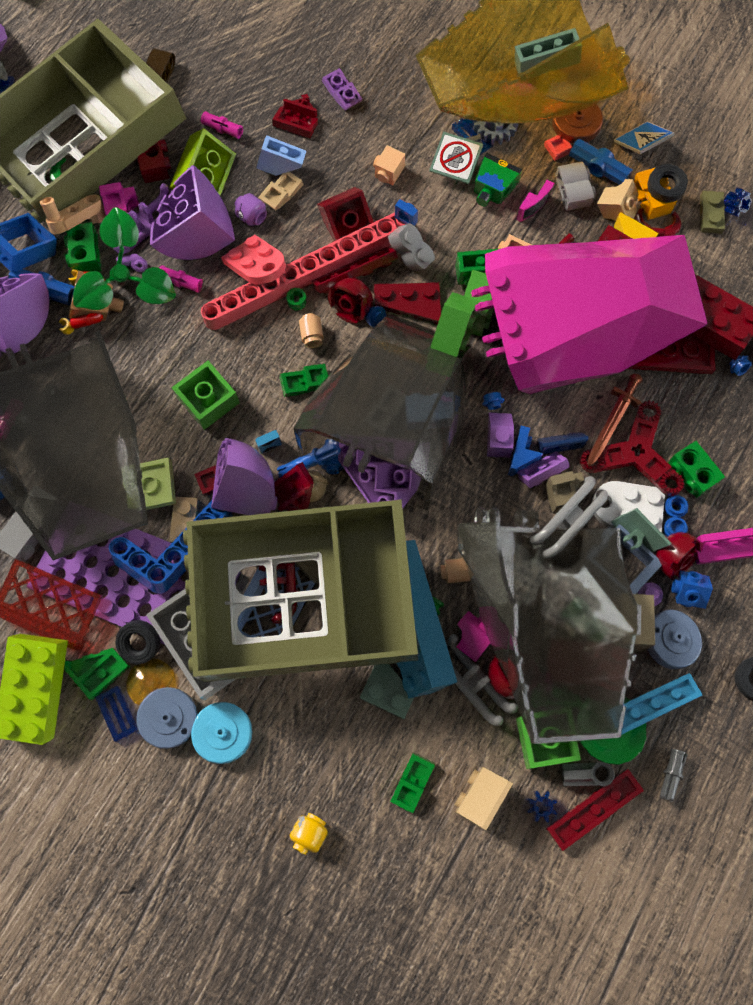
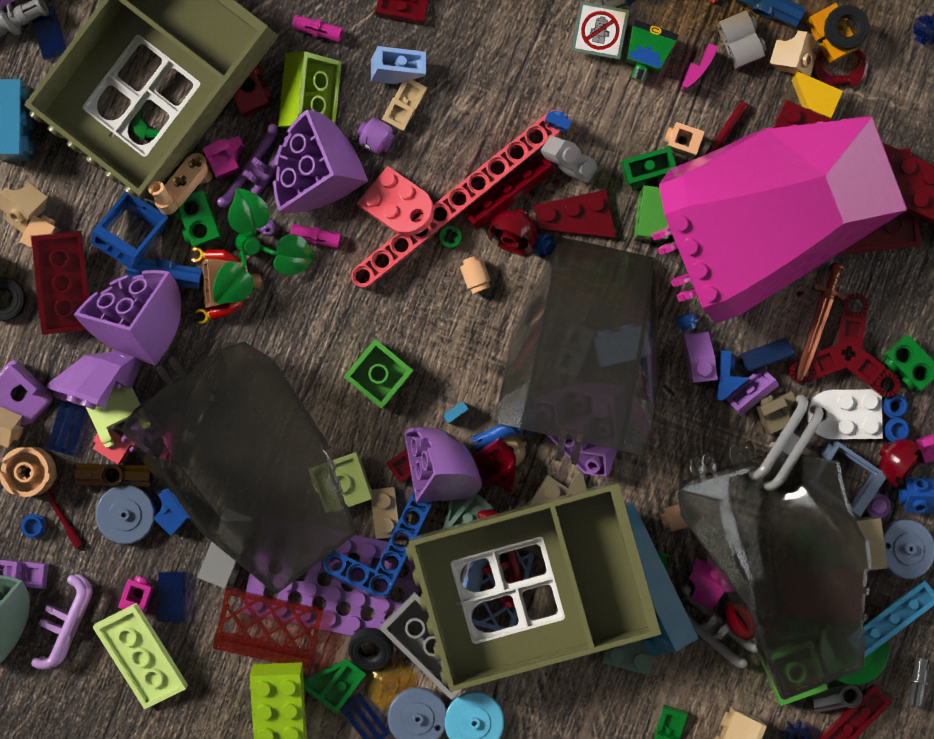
camera: 10 degrees left, 15 degrees up
(303, 381) = (479, 333): green slope -> none
(345, 213) = (487, 125): dark red slope -> none
(389, 165) = (523, 51): light nougat brick -> none
(454, 324) = (637, 260): bright green brick -> none
(641, 530) = (859, 449): sand green piece -> none
(712, 212) = (901, 43): olive plate -> none

